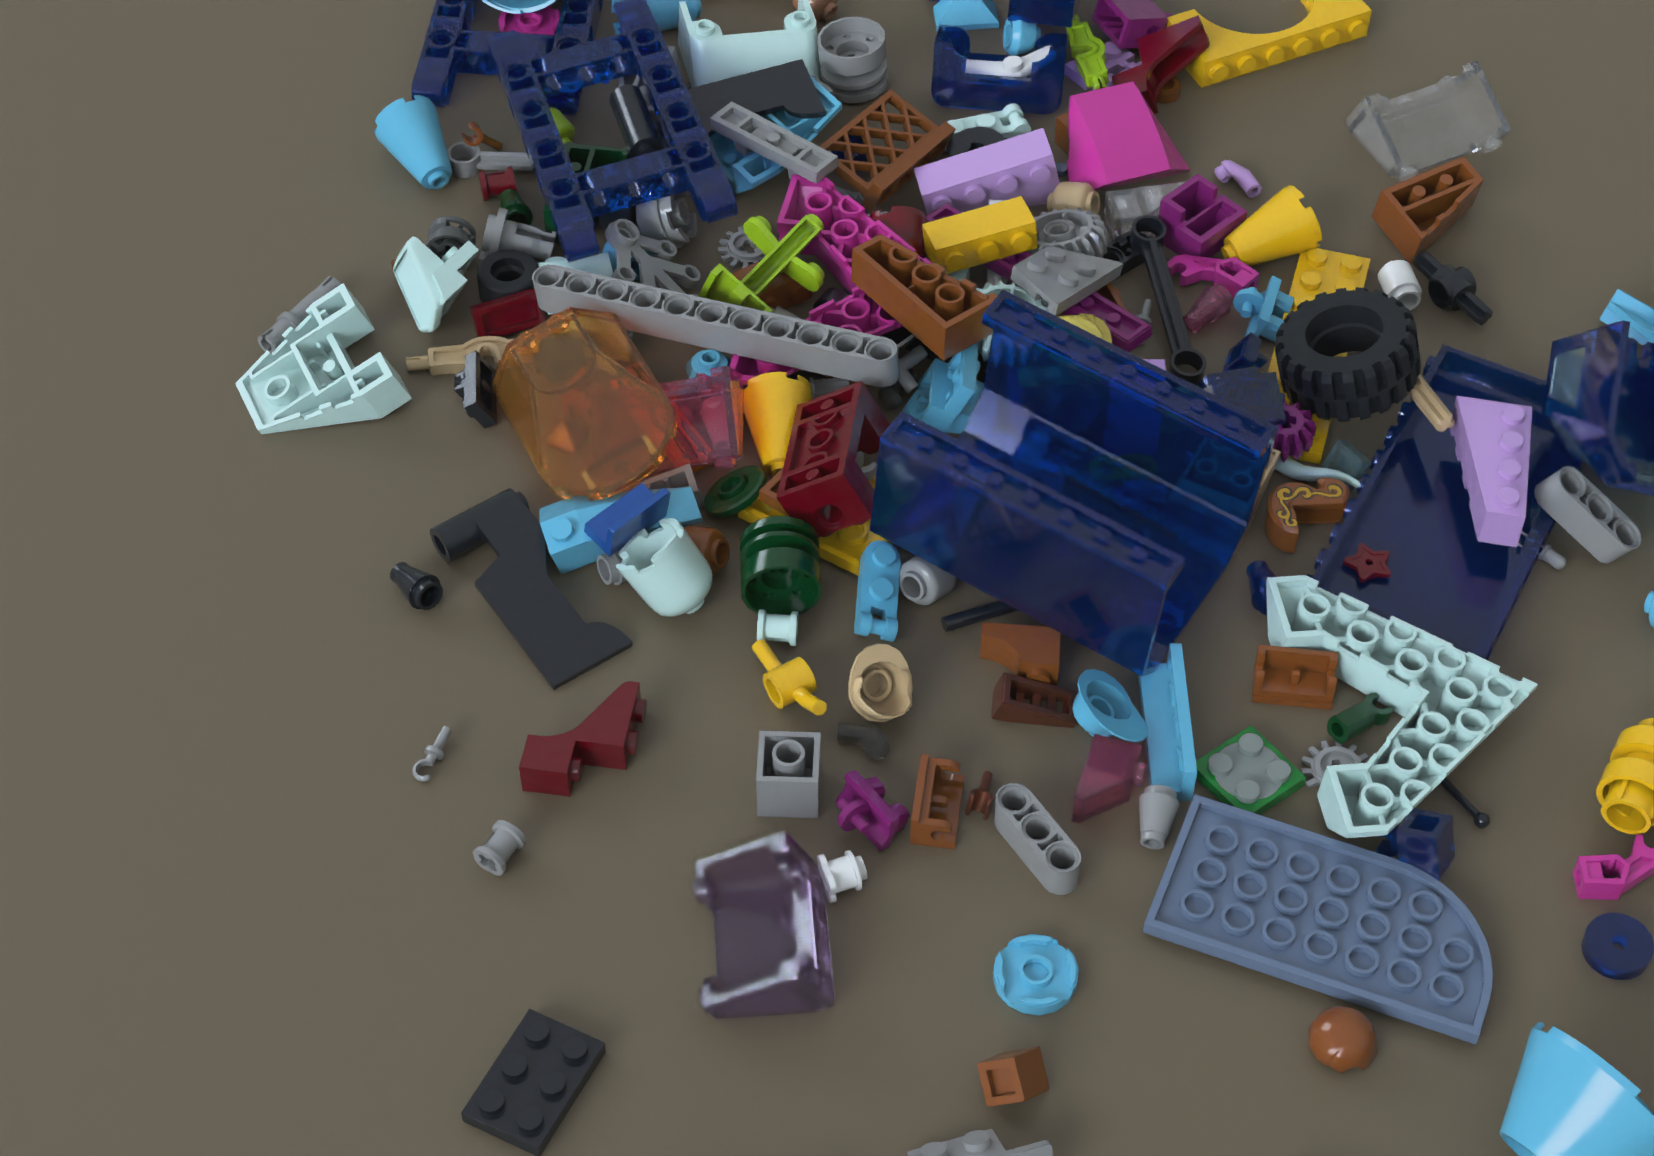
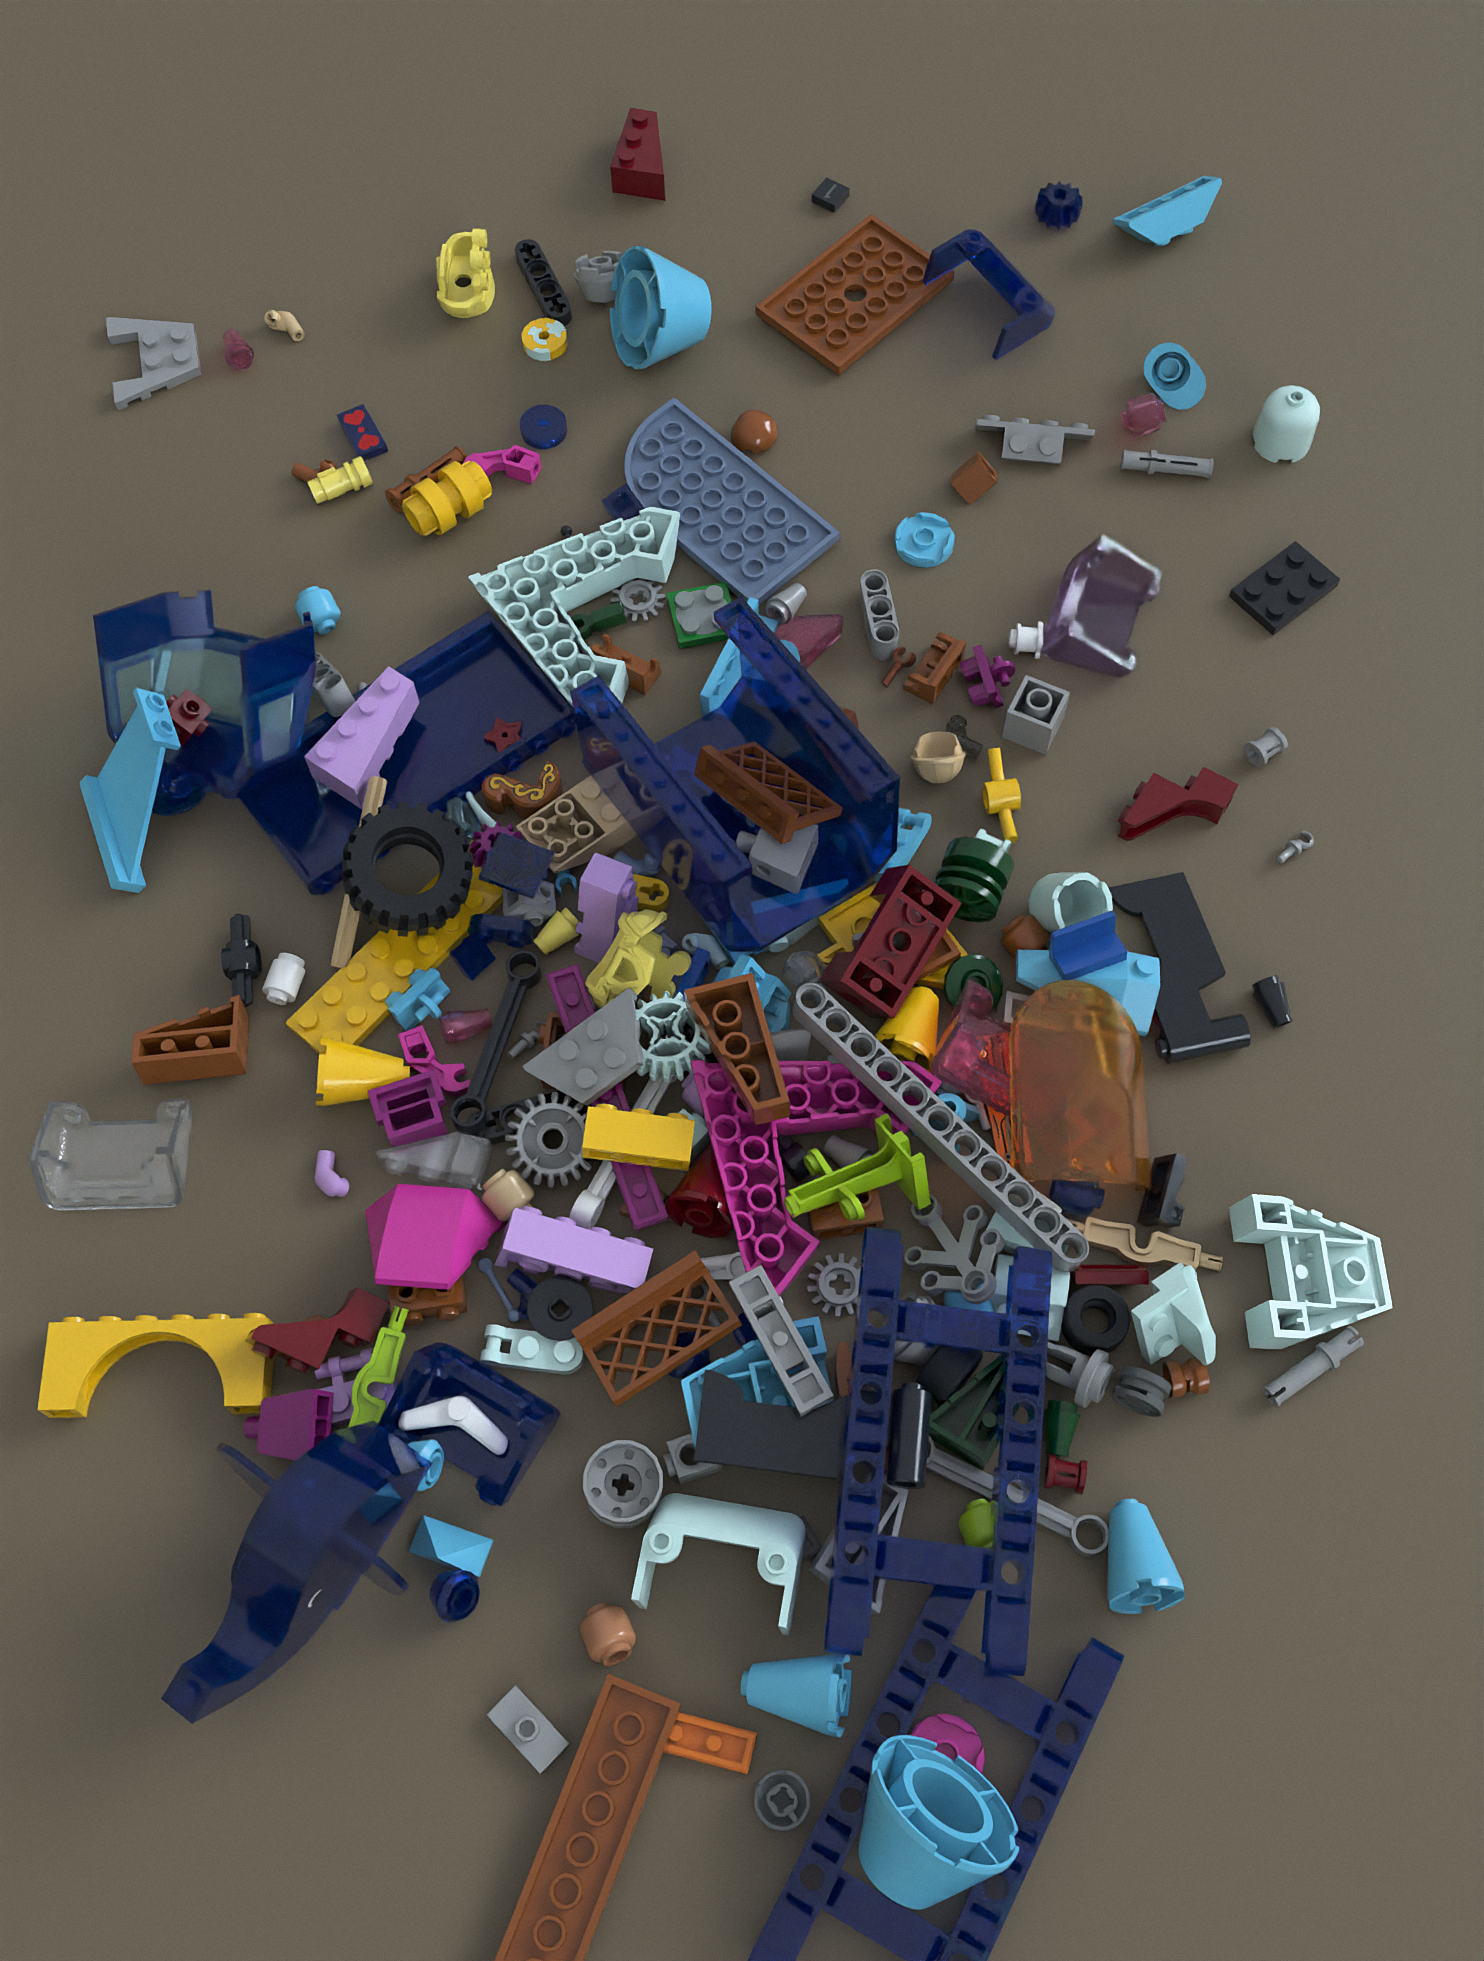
camera: 155 degrees left, 15 degrees up
(480, 137) = (1075, 1547): dark orange hand -> none

